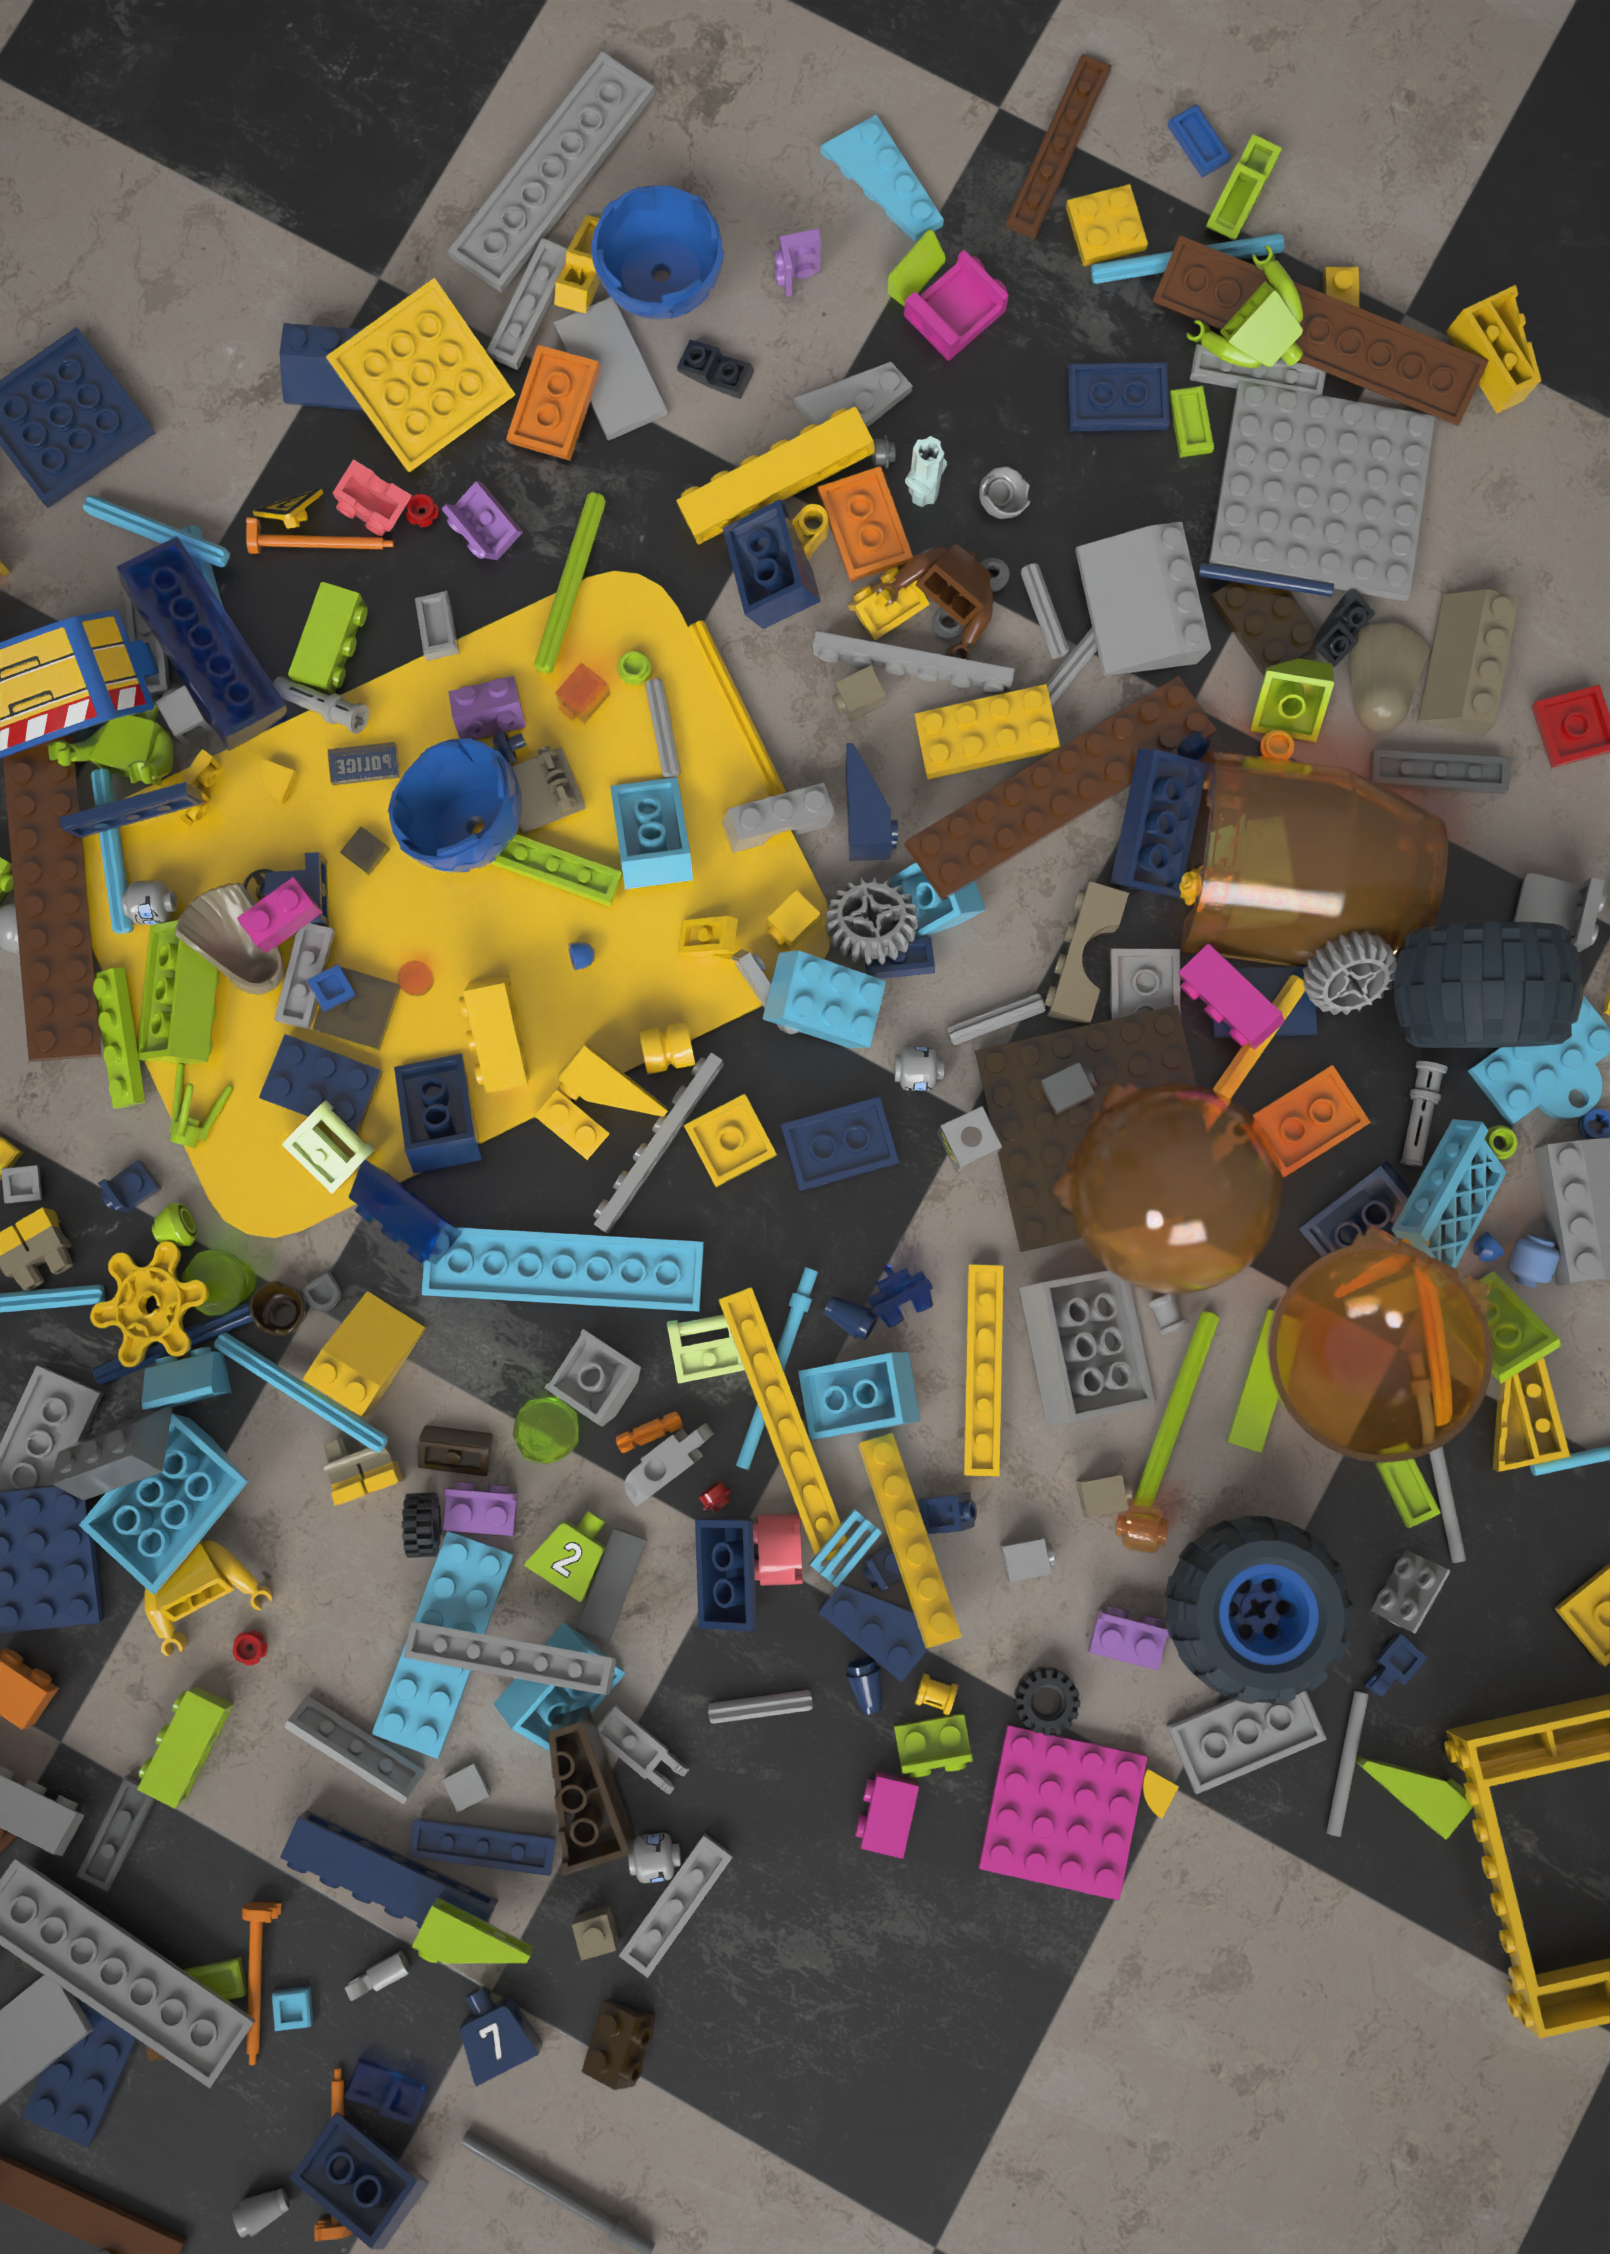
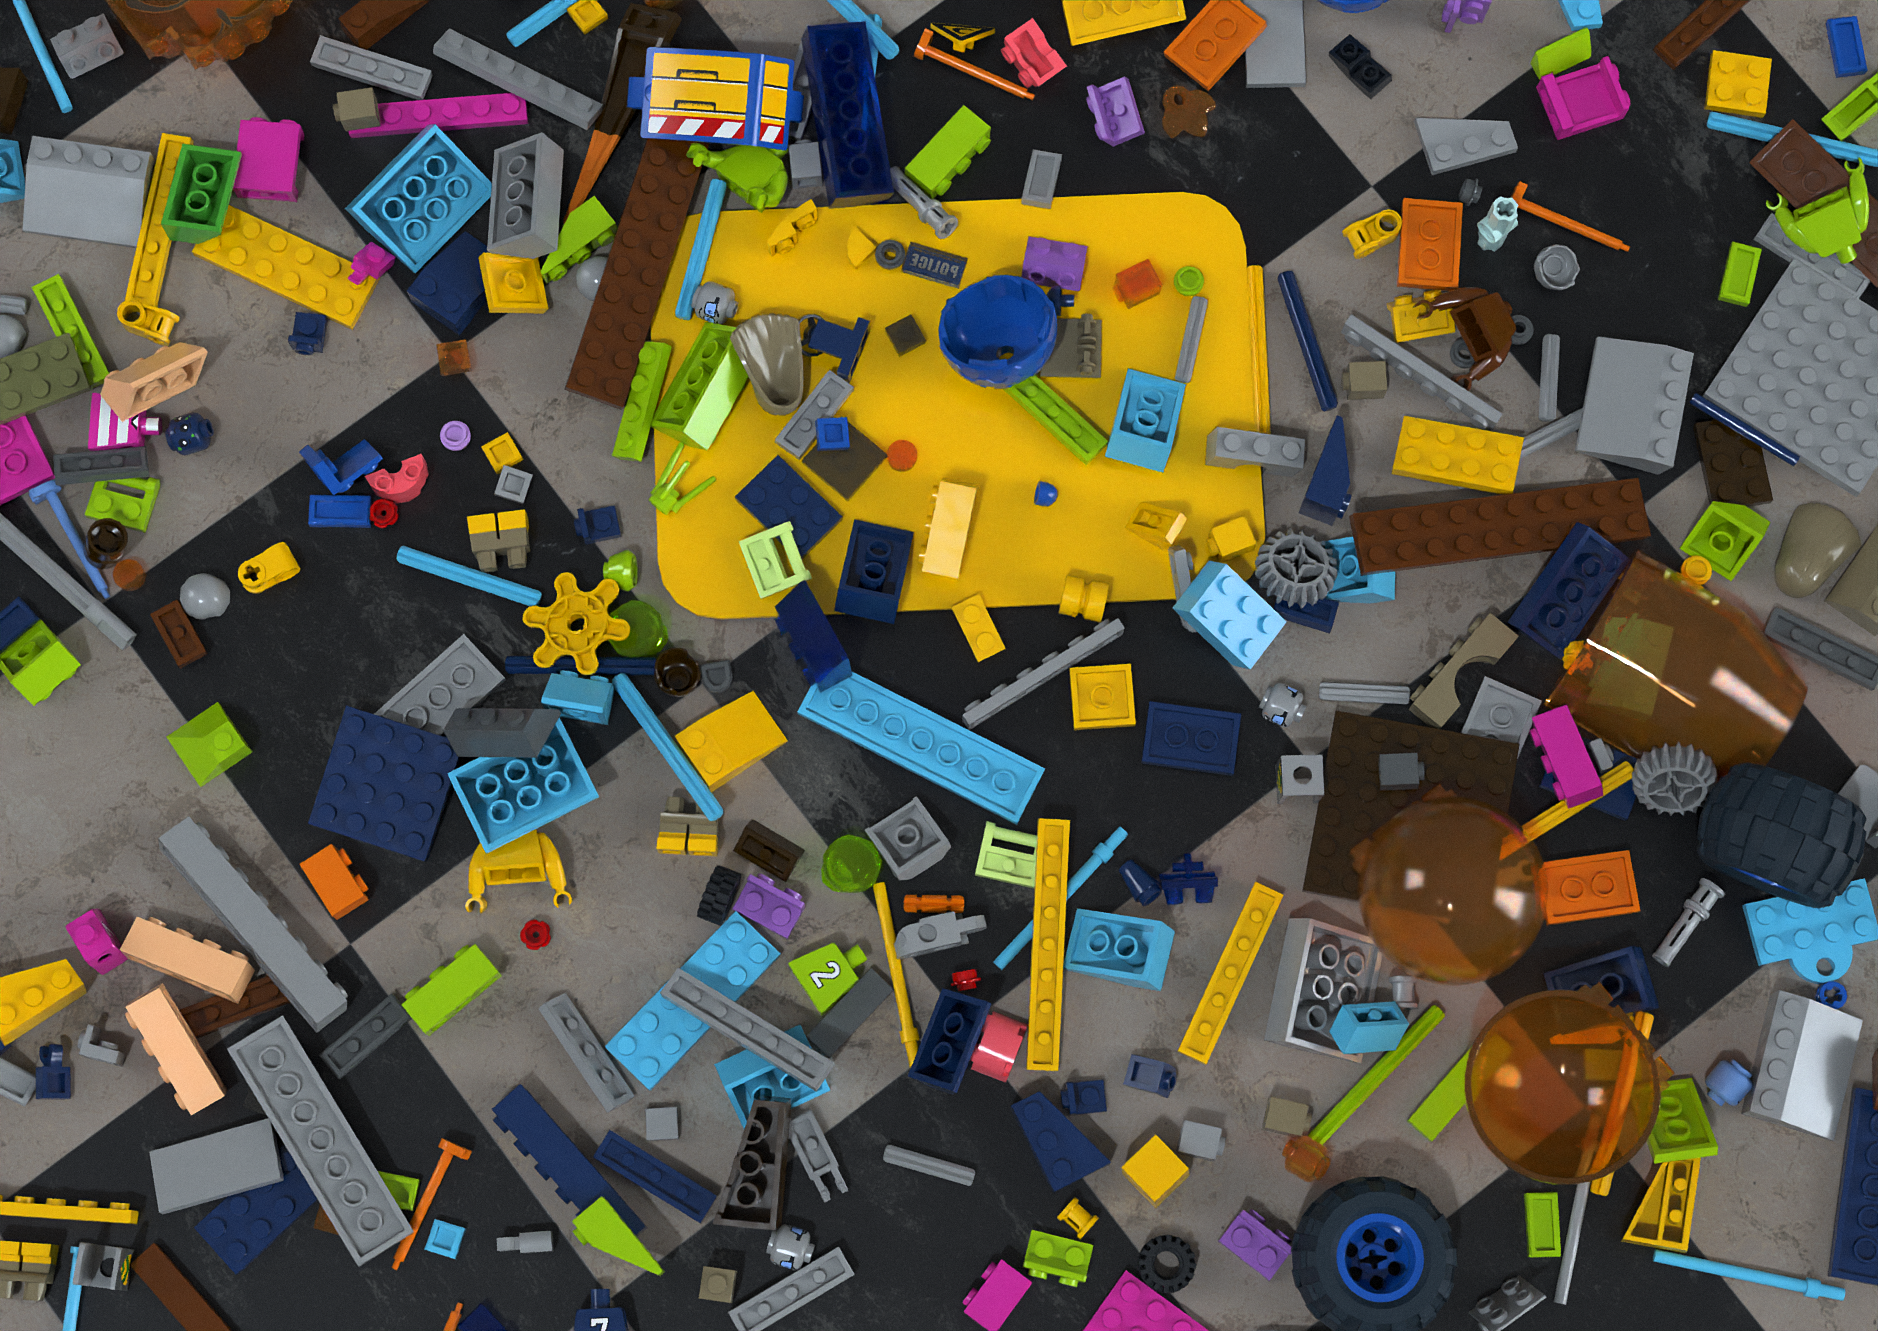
camera: 20 degrees right, 5 degrees down
(131, 810) = (735, 224): dark blue tile -> none
(279, 915) = (818, 357): dark pink brick -> none
(308, 763) = (890, 246): none -> dark grey plate
(420, 502) = (1072, 74): red plate -> none
(561, 493) = (1189, 115): none -> clear orange plate
(569, 583) = (1165, 190): lime axle -> none
(601, 1082) = (1018, 600): yellow slope -> none
(682, 1578) = (908, 1034): none -> yellow bar
(770, 566) = (1336, 246): dark blue slope -> none
(776, 474) = (1373, 173): yellow brick -> none
(782, 678) = (1307, 341): none -> dark blue axle
(857, 1554) = (1079, 1053): medium azure tile -> none
(865, 1682) = (1023, 1184): dark blue cone -> none
(909, 1541) = (1110, 1081): yellow plate -> none
(993, 442) = (1563, 221): none -> orange piece
(995, 1613) = (1155, 1171): none -> yellow head
(1118, 396) = (1687, 228): dark blue tile -> none
(1149, 1367) = (1369, 1027): none -> medium azure brick
(1194, 746) = (1625, 540): clear blue tile -> none
(1264, 980) = (1600, 755): none -> light grey plate
(1343, 623) = (1788, 497): black slope -> none
(1437, 1192) = (1674, 981): medium azure fence -> none
(1487, 1248) = (1694, 1057): blue hinge -> none
(1509, 1141) = (1751, 971): lime plate -> none

